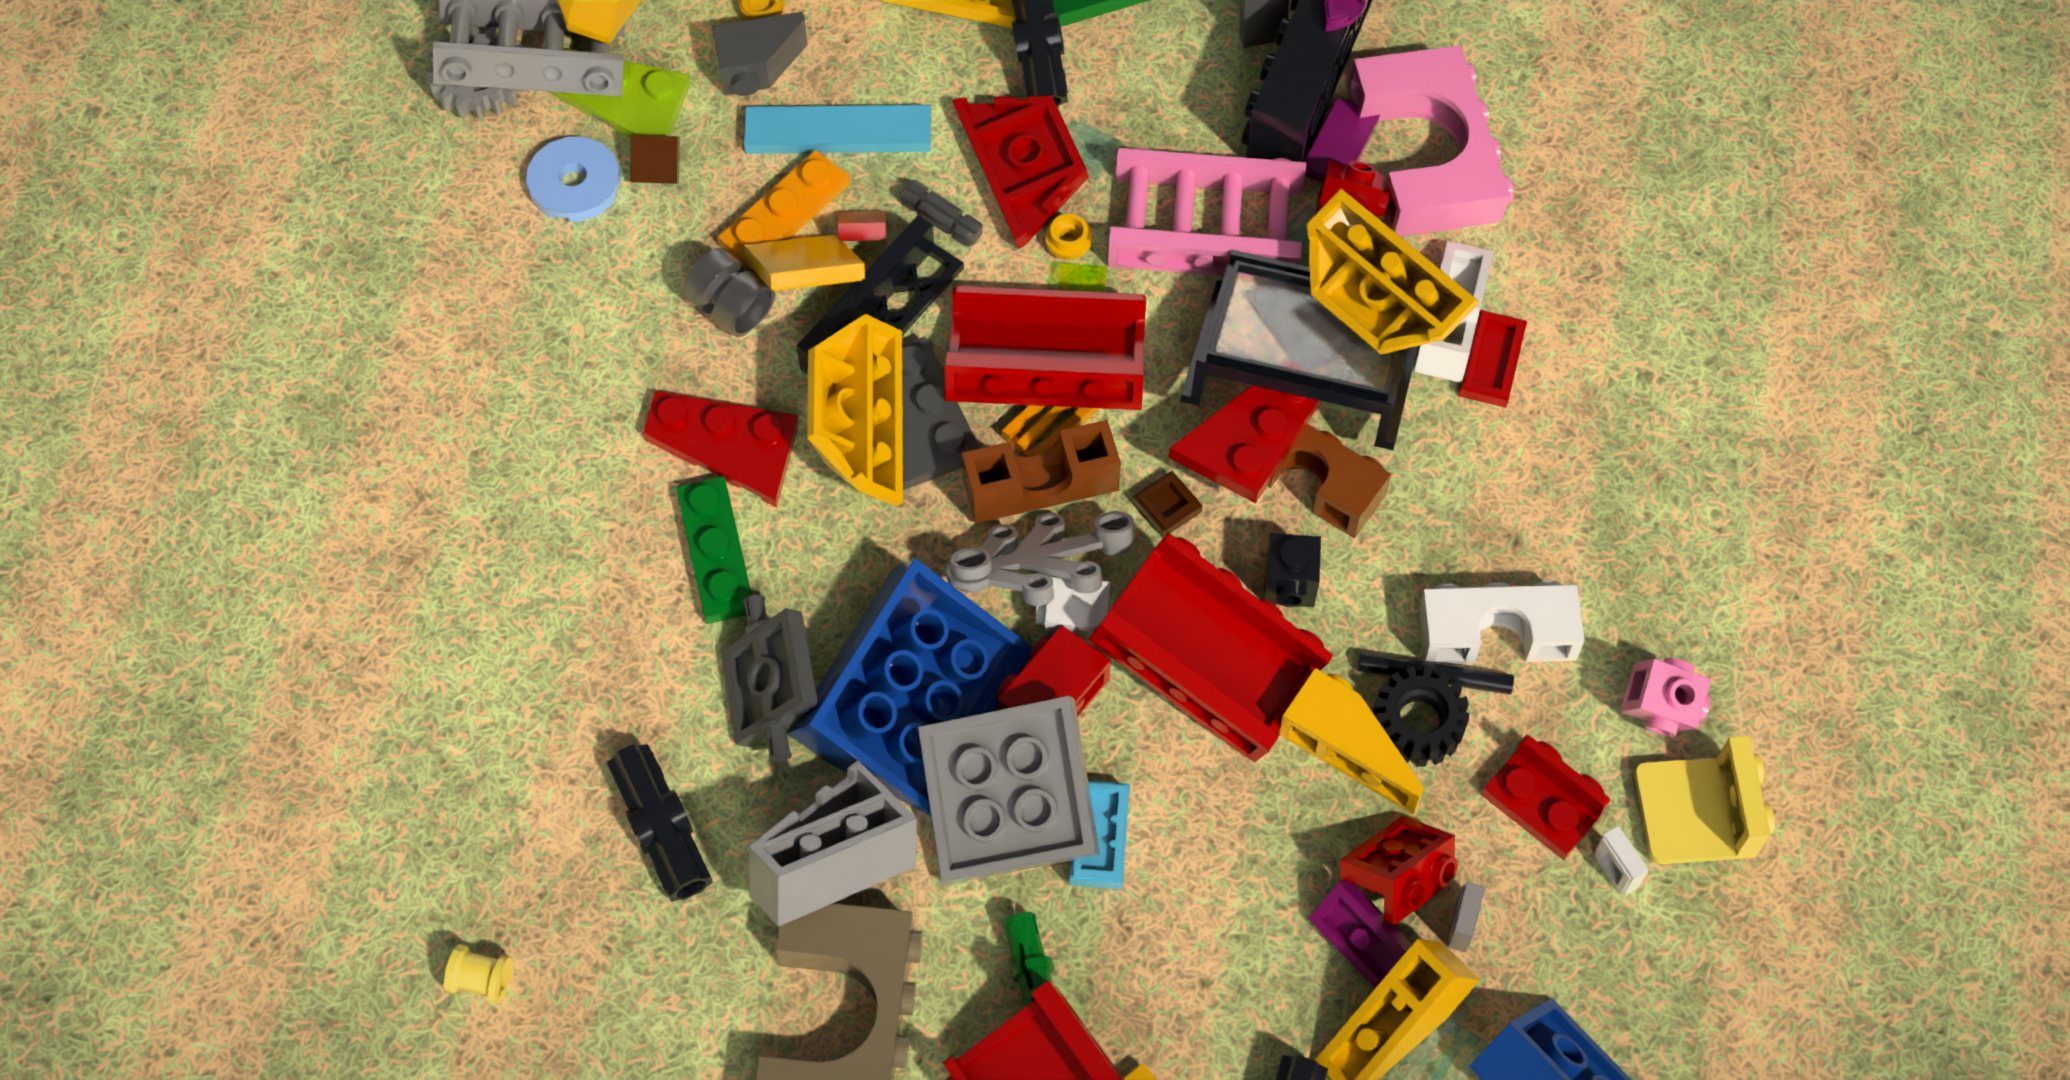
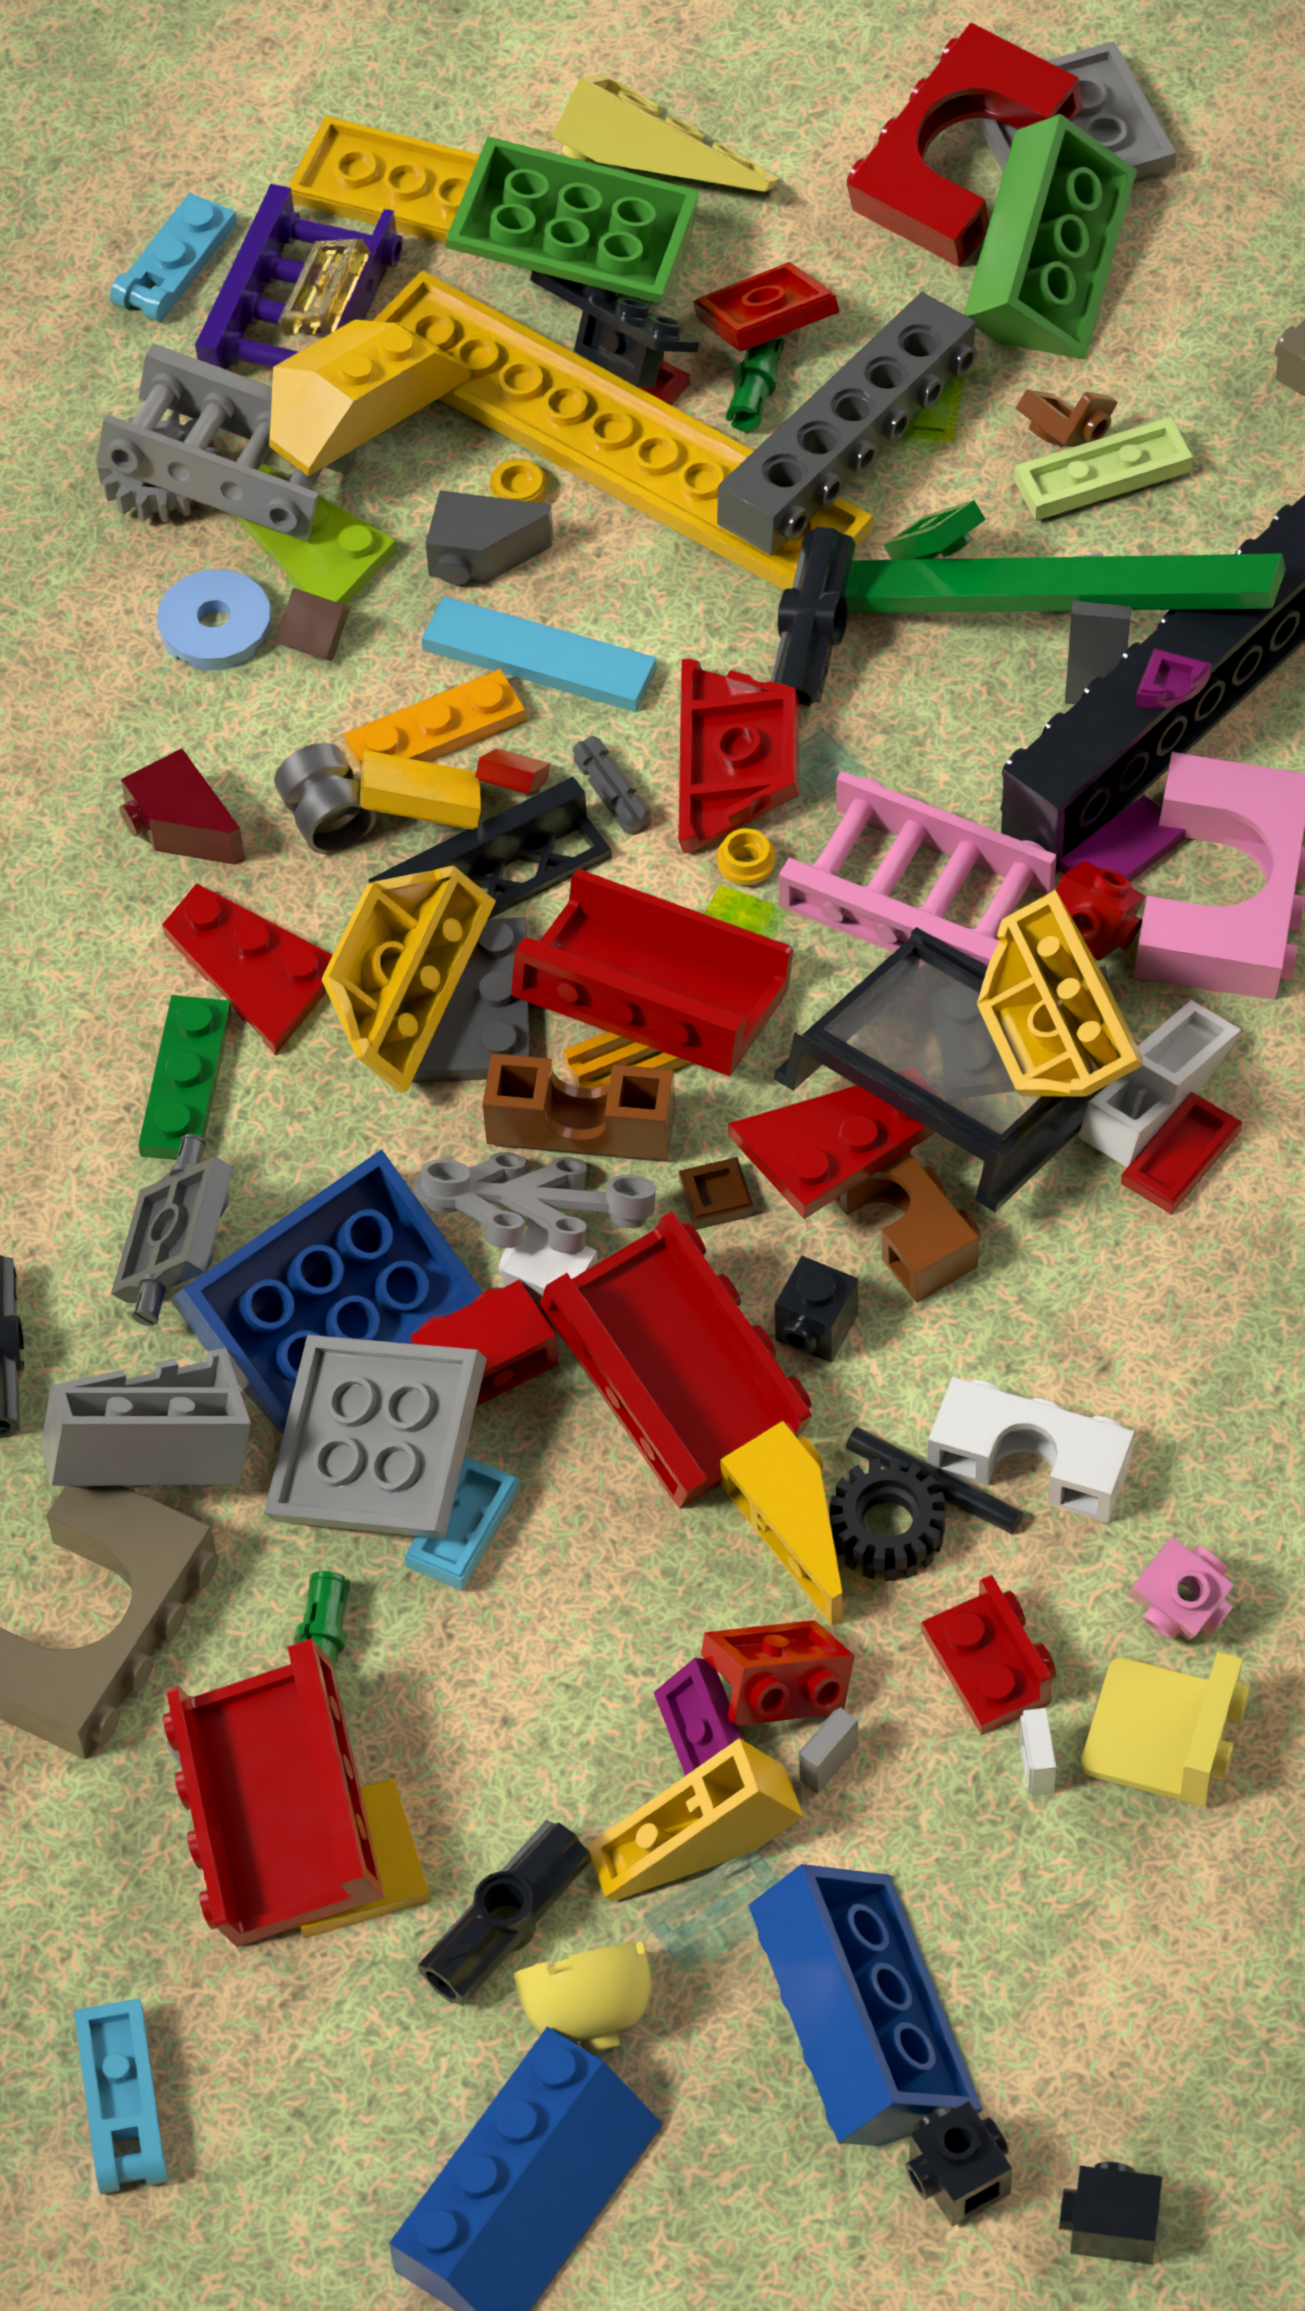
camera: 25 degrees right, 5 degrees down
(619, 338) = (180, 811): none -> dark red slope

